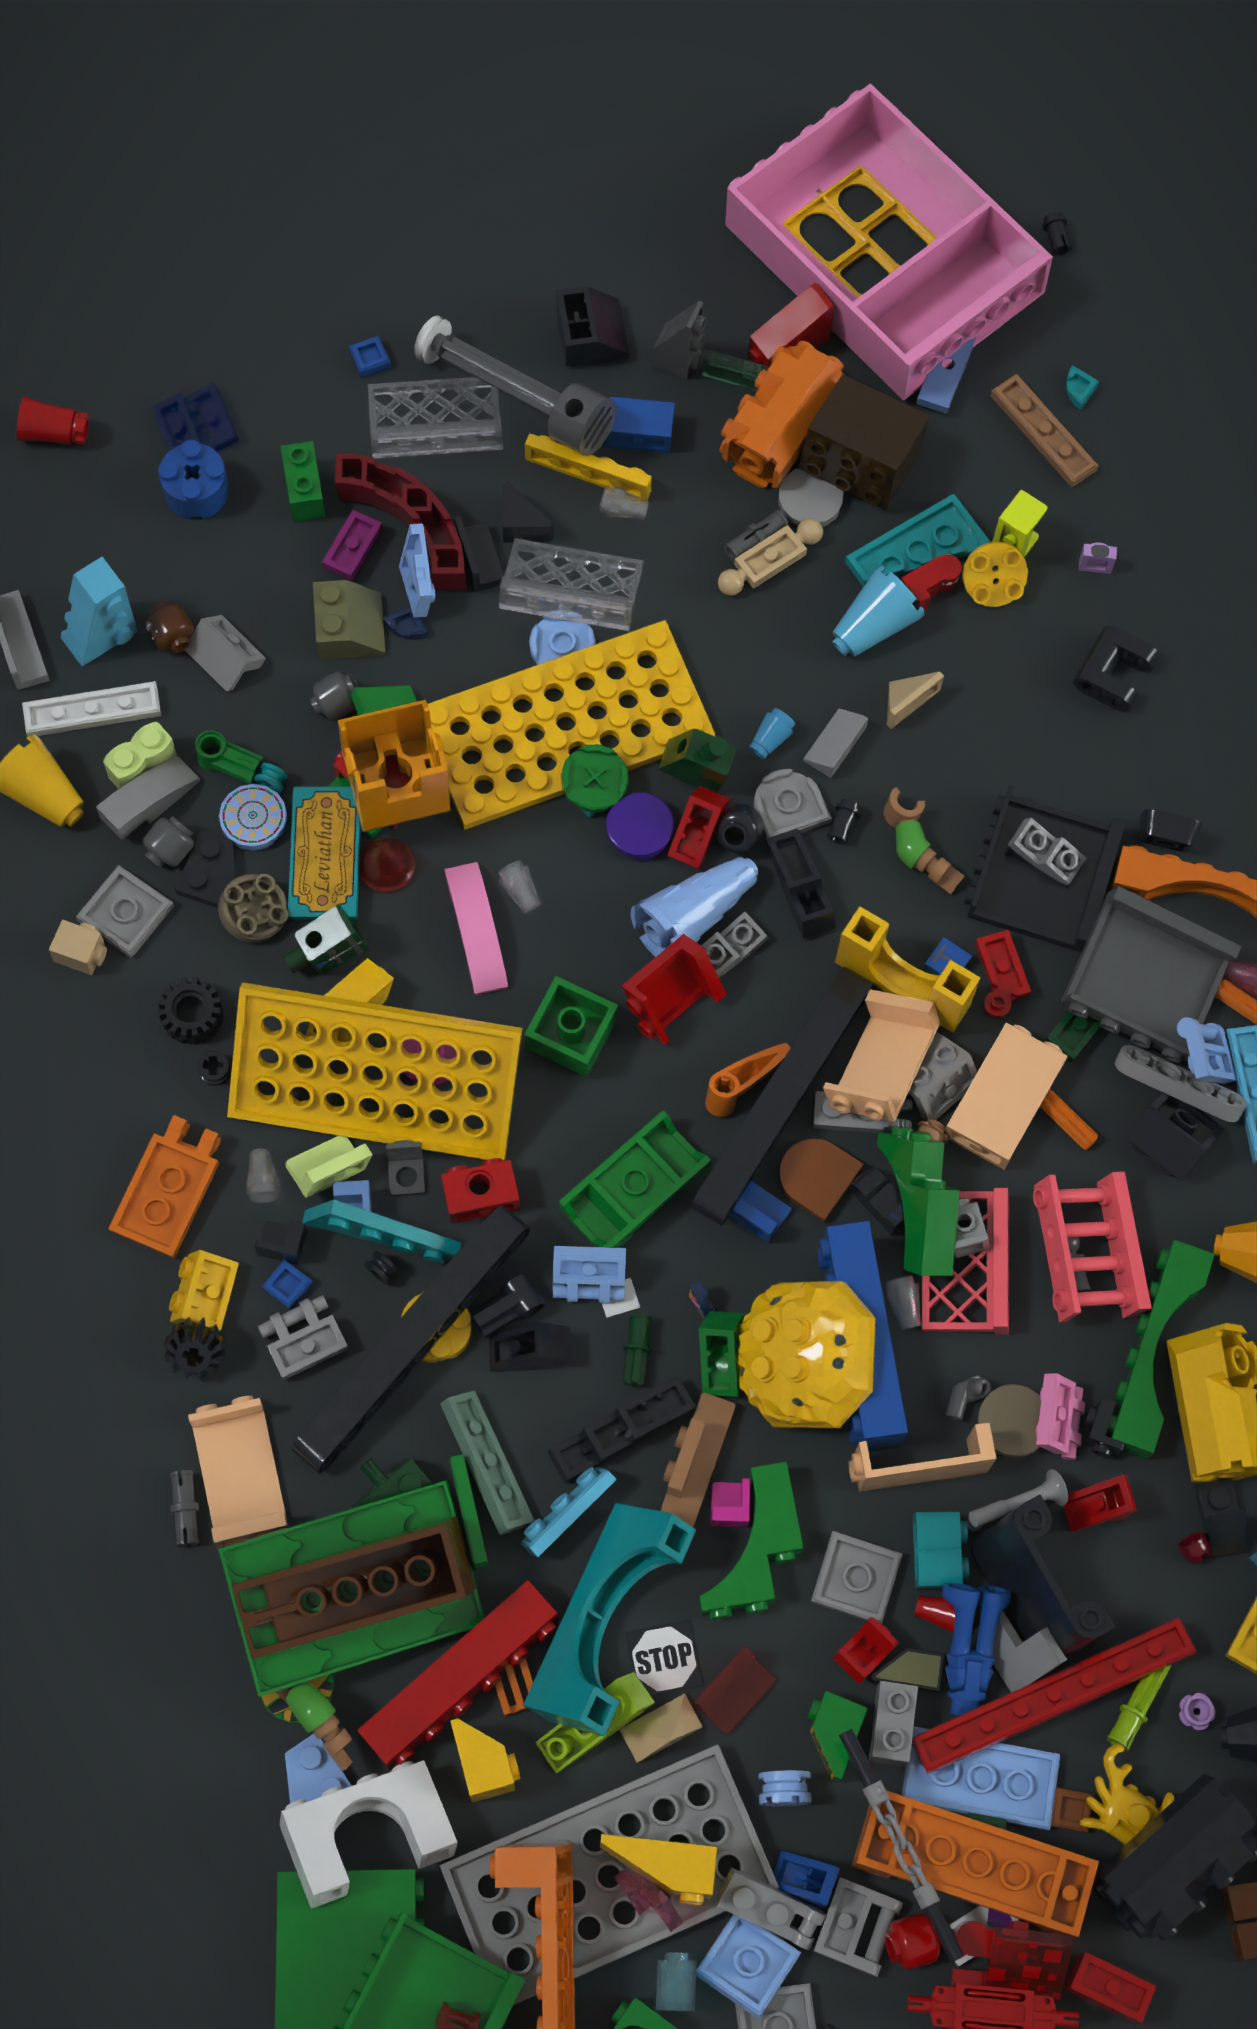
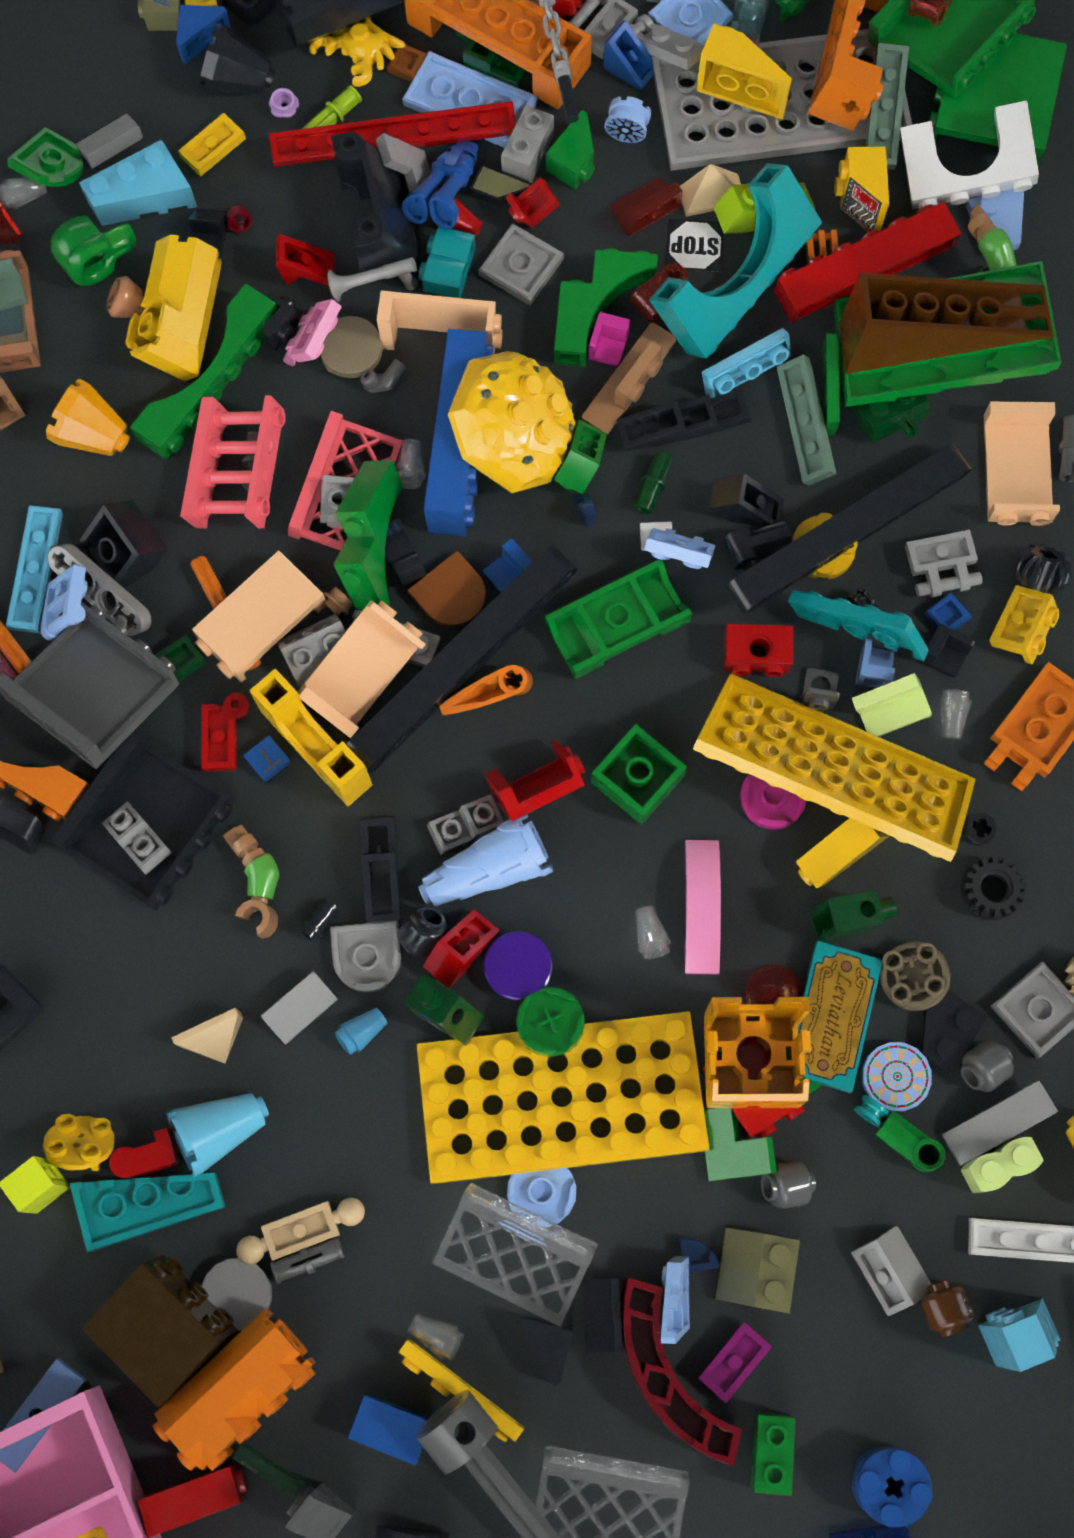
camera: 160 degrees left, 5 degrees up
(480, 1898) = (886, 113): none -> sand green plate
(690, 1574) = (641, 296): none -> clear red piece

